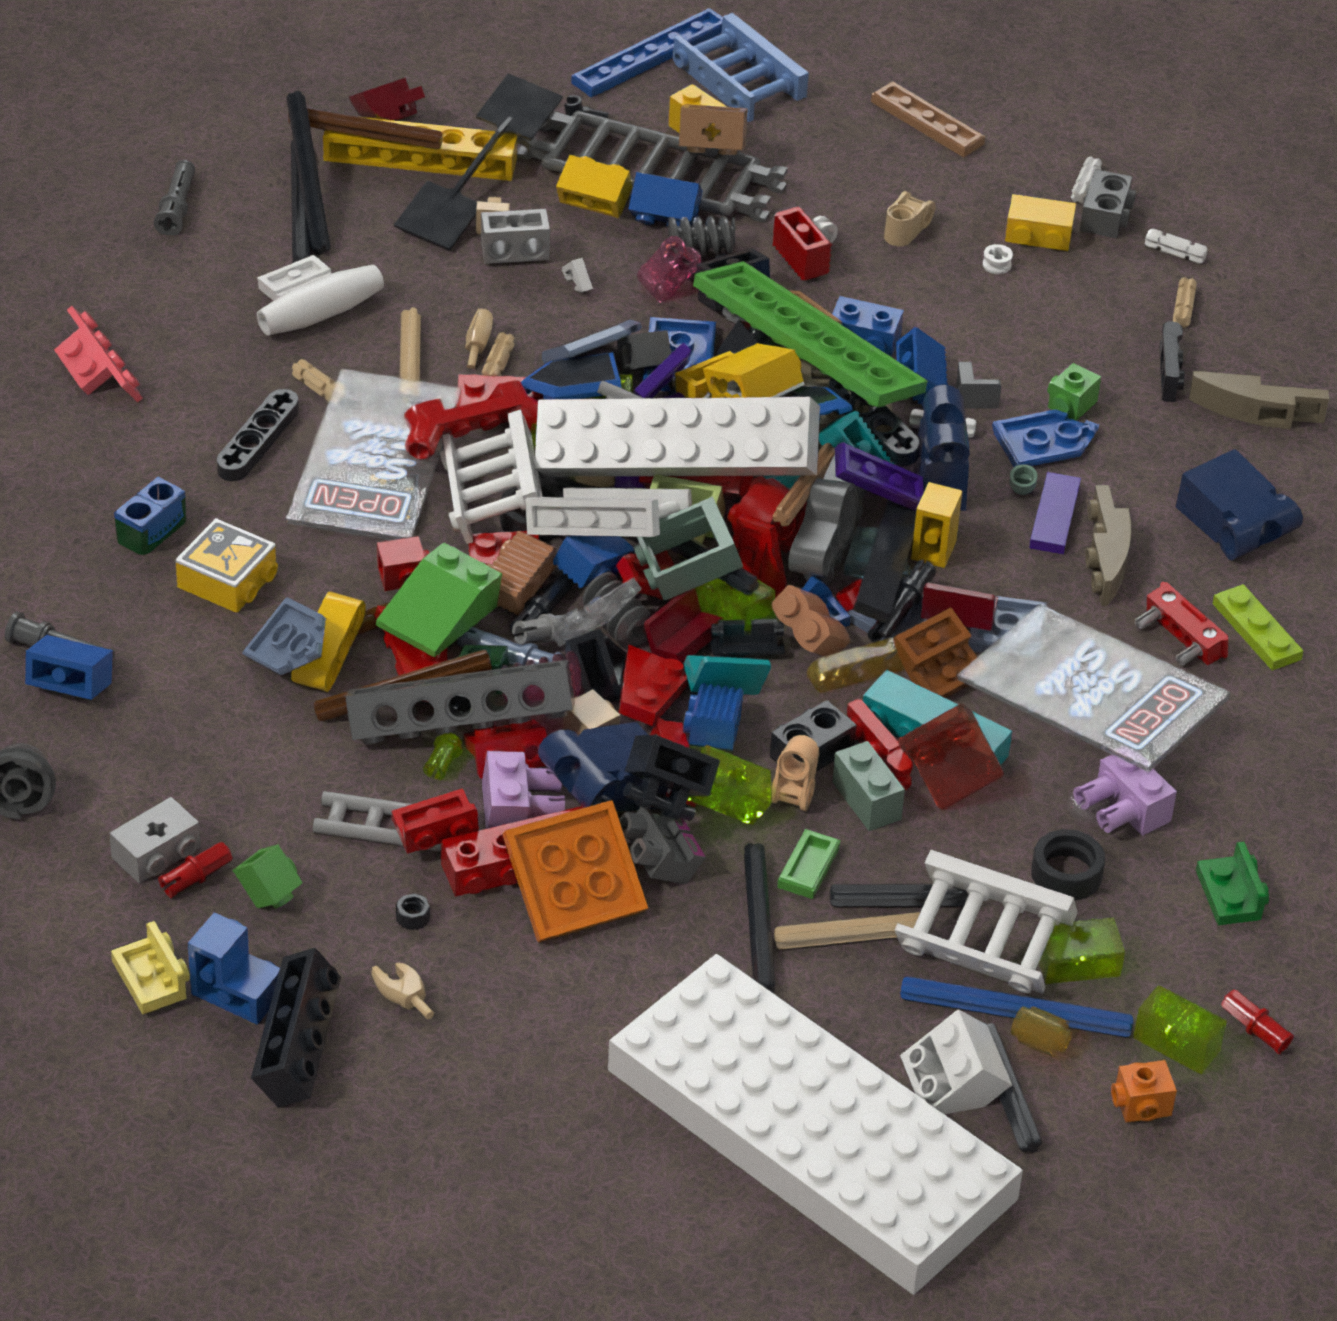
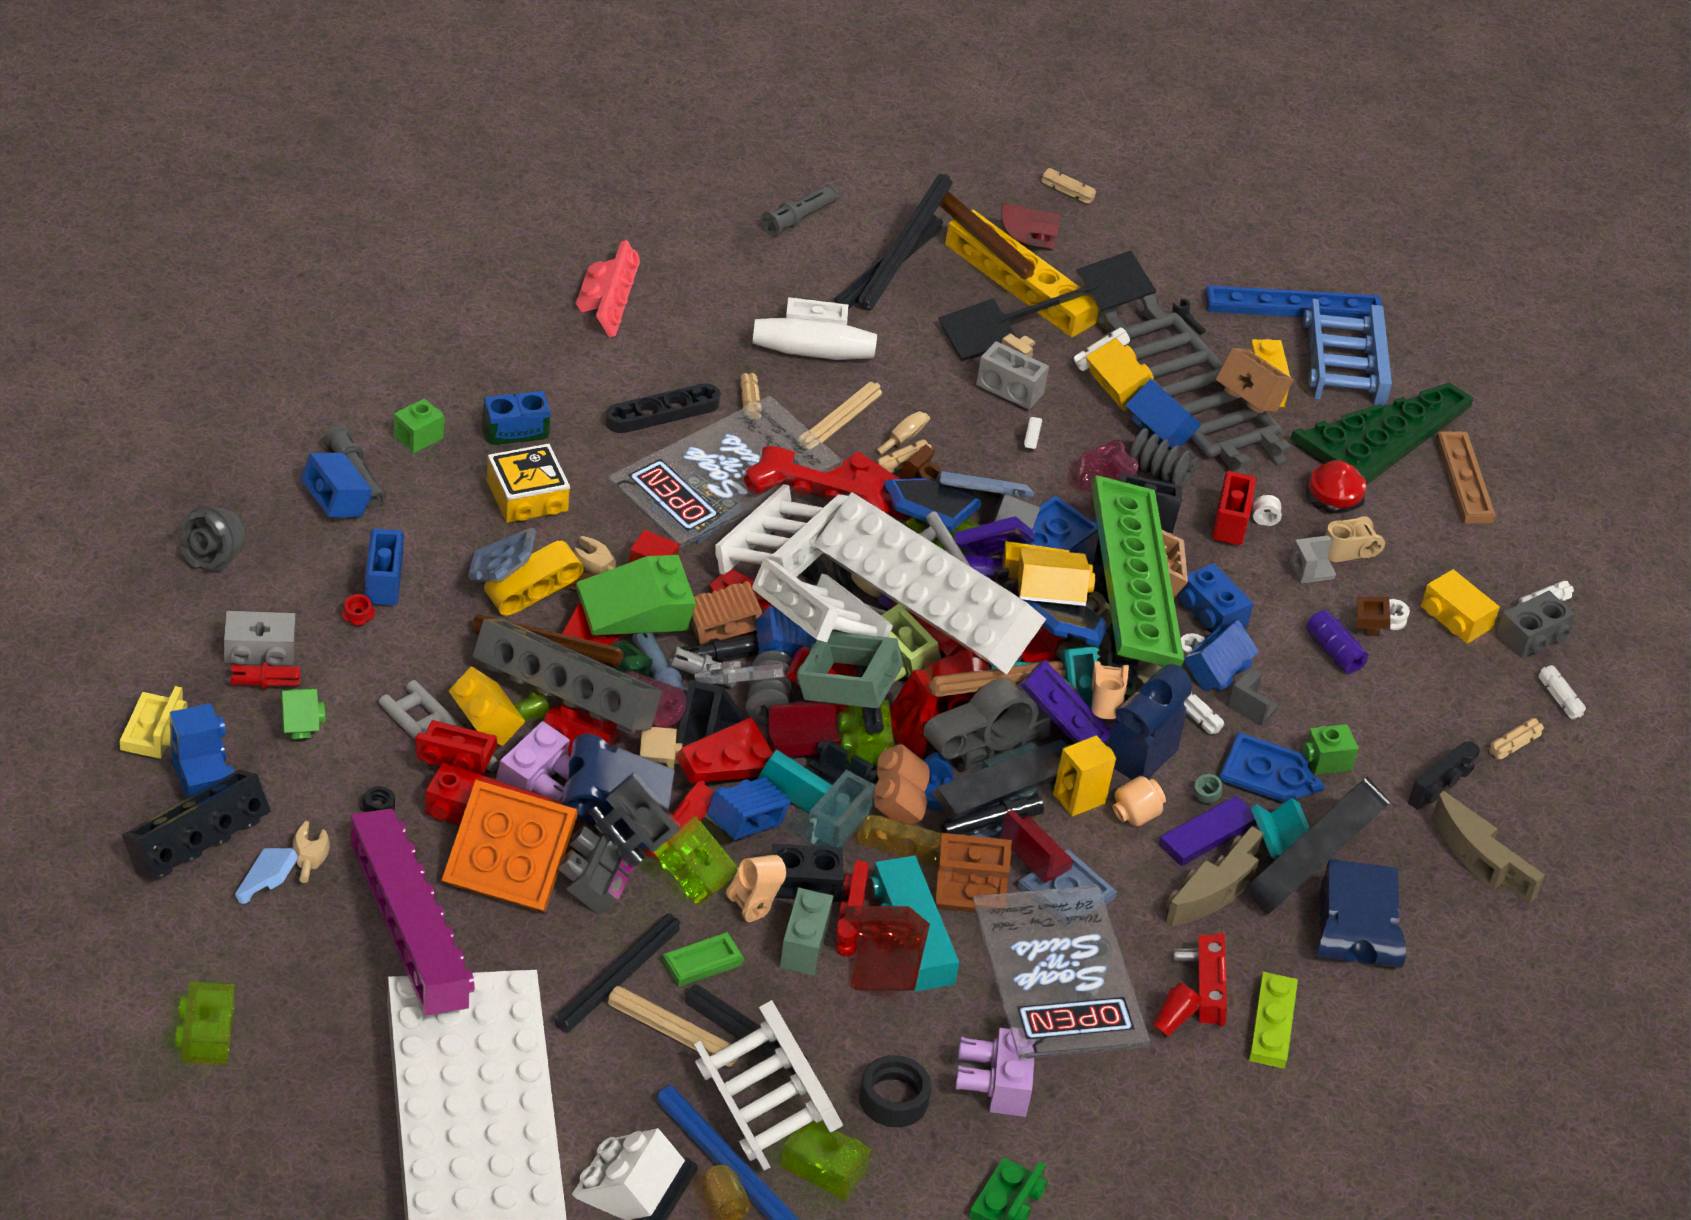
camera: 35 degrees right, 0 degrees up
(73, 573) = (418, 425): none -> bright green brick
(194, 710) = (384, 566): none -> blue brick
(207, 756) = (355, 604): none -> red plate
(354, 589) = (599, 556): none -> tan hand
(370, 53) = (1068, 186): none -> tan axle
(392, 1028) = (268, 870): none -> light blue tile
(418, 769) = (486, 705): none -> yellow brick
(495, 1183) = (207, 1022): none -> clear neon green brick
(524, 357) = (919, 465): none -> reddish brown tile
(546, 191) = (1080, 358): none -> white axle
(567, 975) = (411, 912): none -> magenta brick
(791, 673) = (840, 811): none -> clear light blue brick
(834, 120) = (1382, 435): none -> dark green wing
(851, 181) = (1336, 486): none -> red hair
(894, 254) = (1311, 559): none -> light grey panel
(897, 439) = (1108, 689): none -> light nougat piece
(985, 305) = (1337, 641): none -> dark purple axle
(988, 520) = (1139, 801): none -> light nougat head
(990, 266) = (1373, 614): none -> reddish brown tile
(1121, 475) = (1281, 826): none -> teal panel
(1165, 427) = (1317, 845): none -> black beam
(1193, 655) = (1177, 1007): none -> red cone

